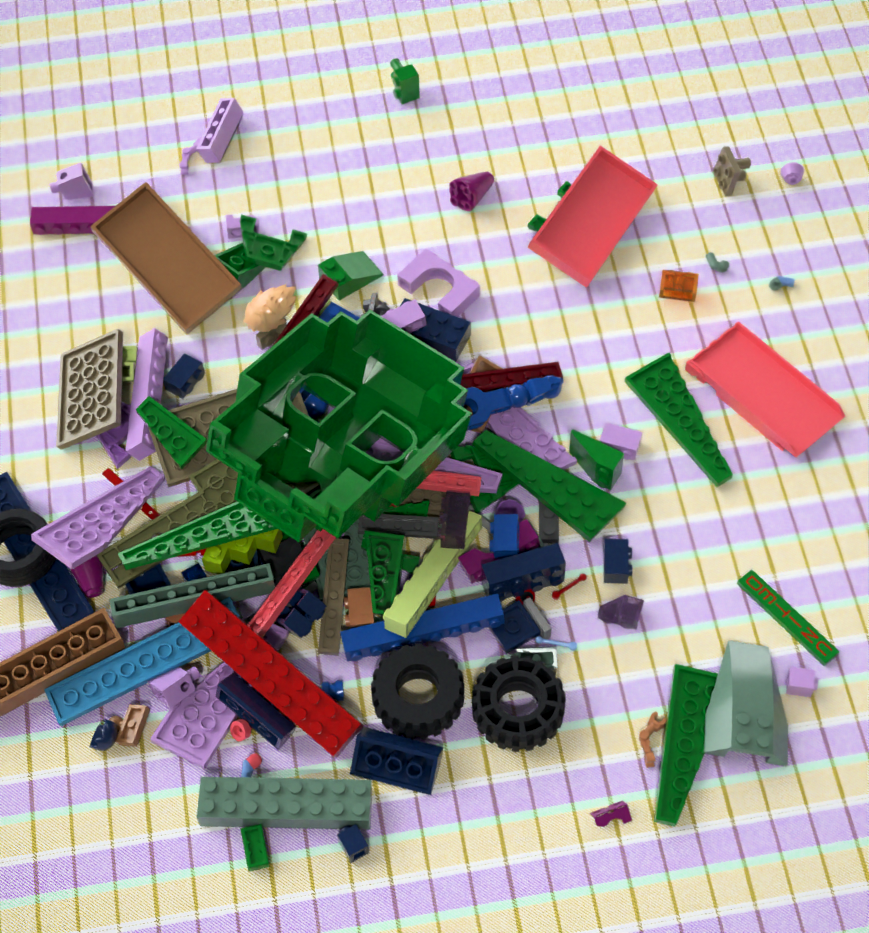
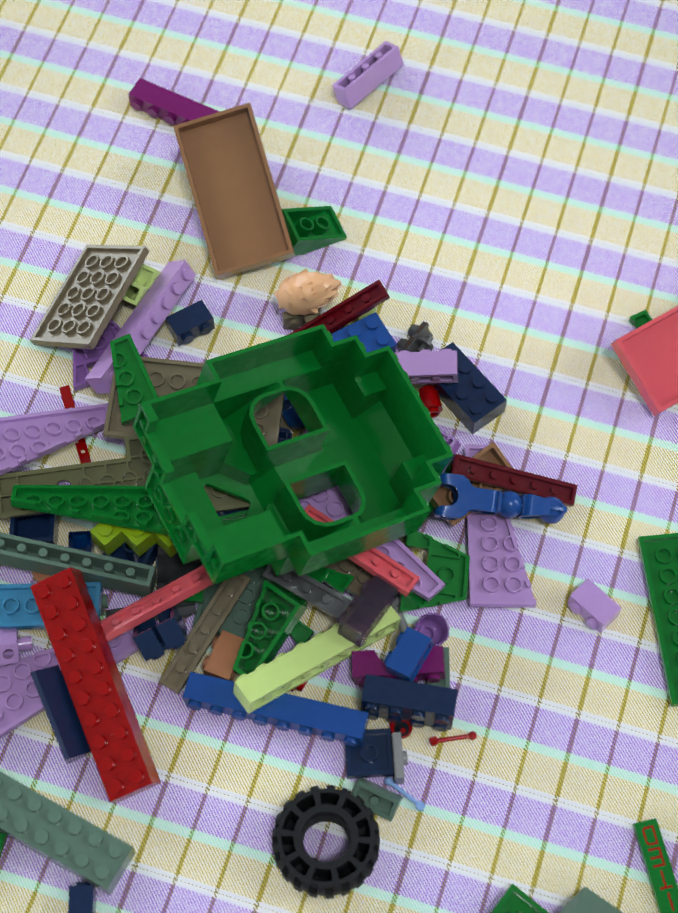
camera: 25 degrees right, 5 degrees up
(73, 183) = (194, 69): lavender torso -> none
(186, 153) = (321, 87): lavender piece -> none
(233, 226) = (334, 188): lavender leg -> none
(240, 730) = (40, 725): coral tile -> none
(250, 765) = (29, 766): arm -> none
(268, 250) = (344, 226): green wing -> none
(335, 689) = (154, 731): blue wheel -> none
(350, 271) = (415, 286): green slope -> none
(396, 760) = (173, 836): dark blue slope -> none
(405, 82) = (585, 102): green brick -> none
(424, 718) = (227, 742): black tyre -> none
(430, 266) = (500, 317): lavender arch -> none
(470, 189) = (590, 251): magenta cone -> none
(548, 525) = (474, 650): dark grey plate -> none
(569, 497) = (505, 642): green wing -> none
(597, 459) = (558, 620): green slope -> none
(616, 561) = (515, 736): dark blue brick -> none
(622, 611) = (492, 795): clear purple slope -> none

